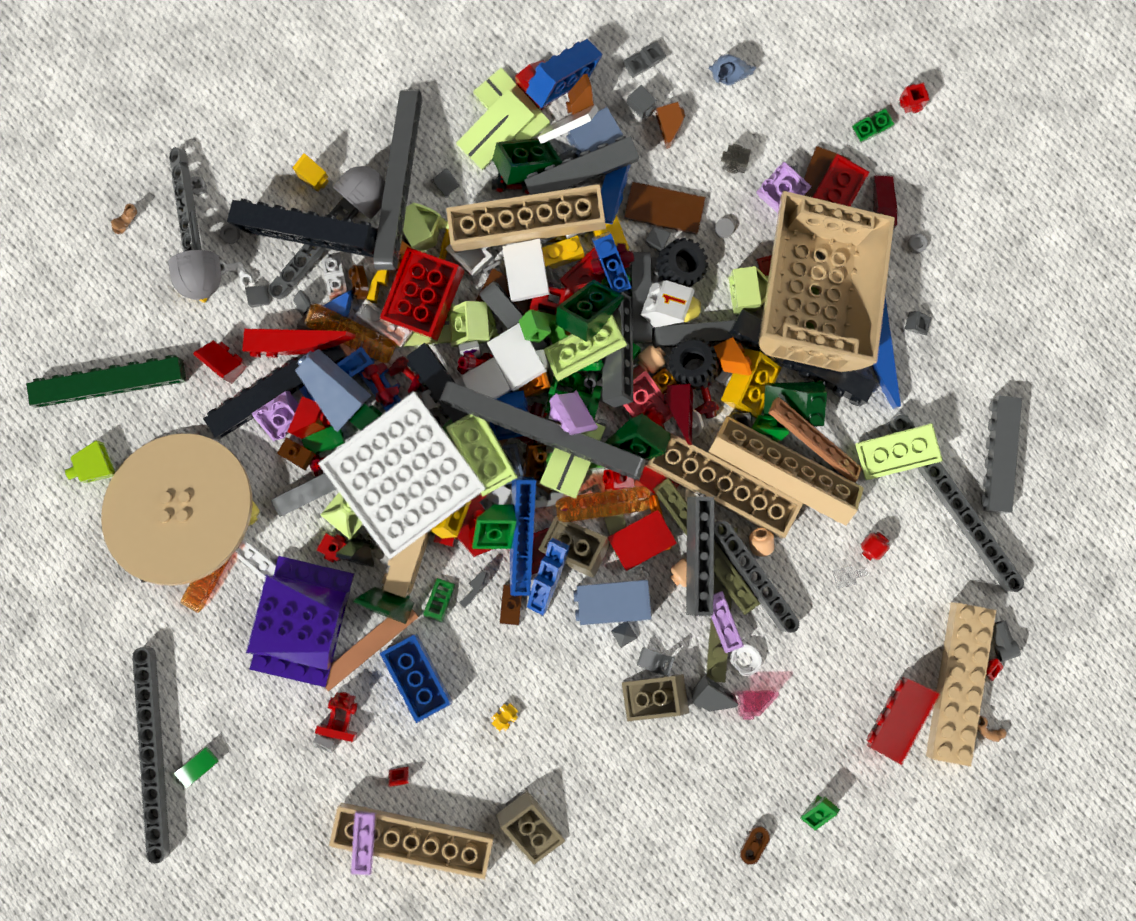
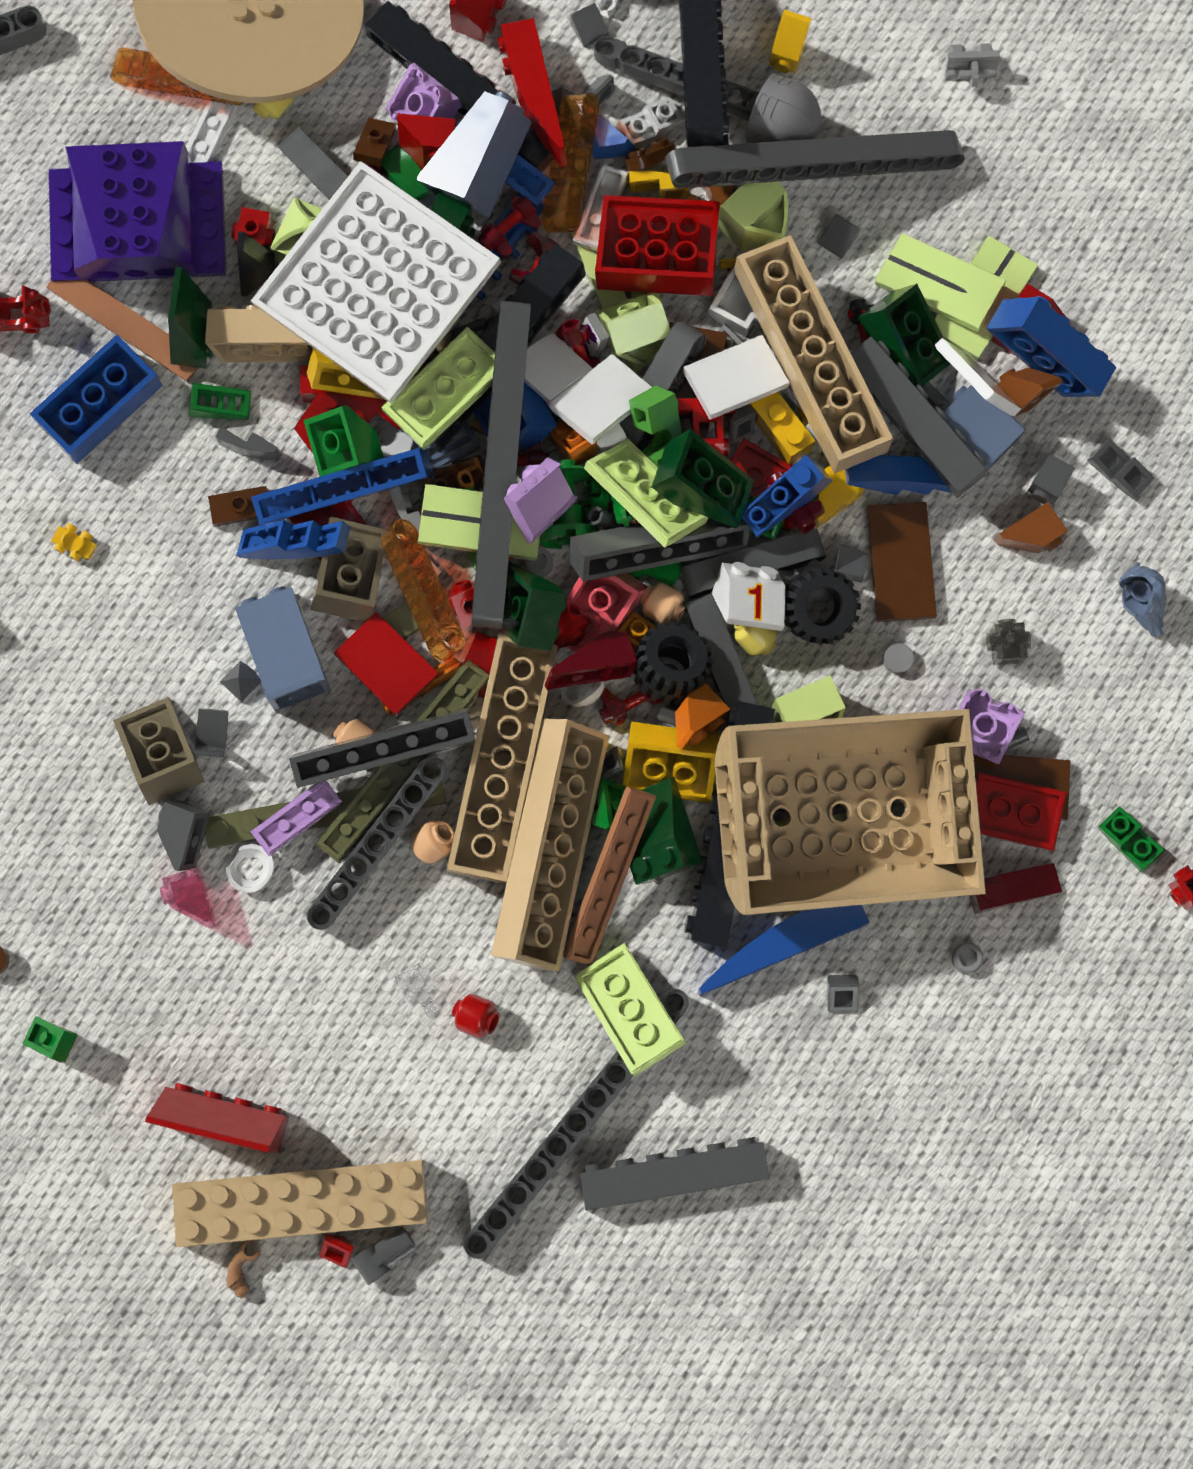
camera: 70 degrees right, 5 degrees down
(359, 67) = (972, 64): none -> light grey hips

